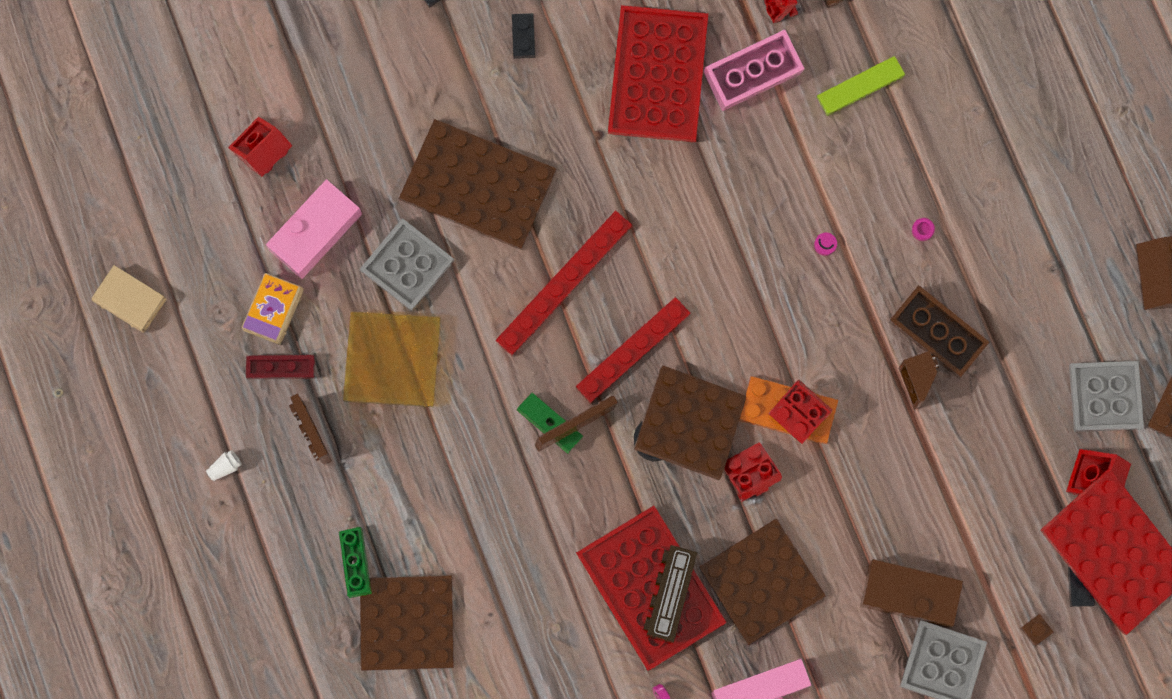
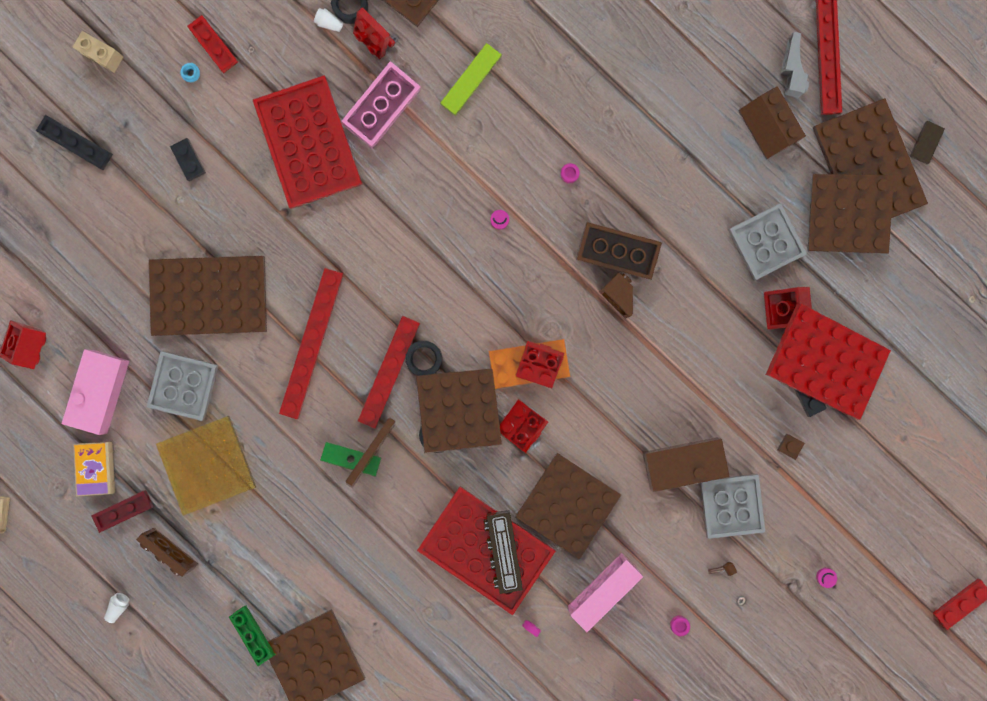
camera: 25 degrees left, 10 degrees up
(678, 335) = (409, 358): none -> black tyre

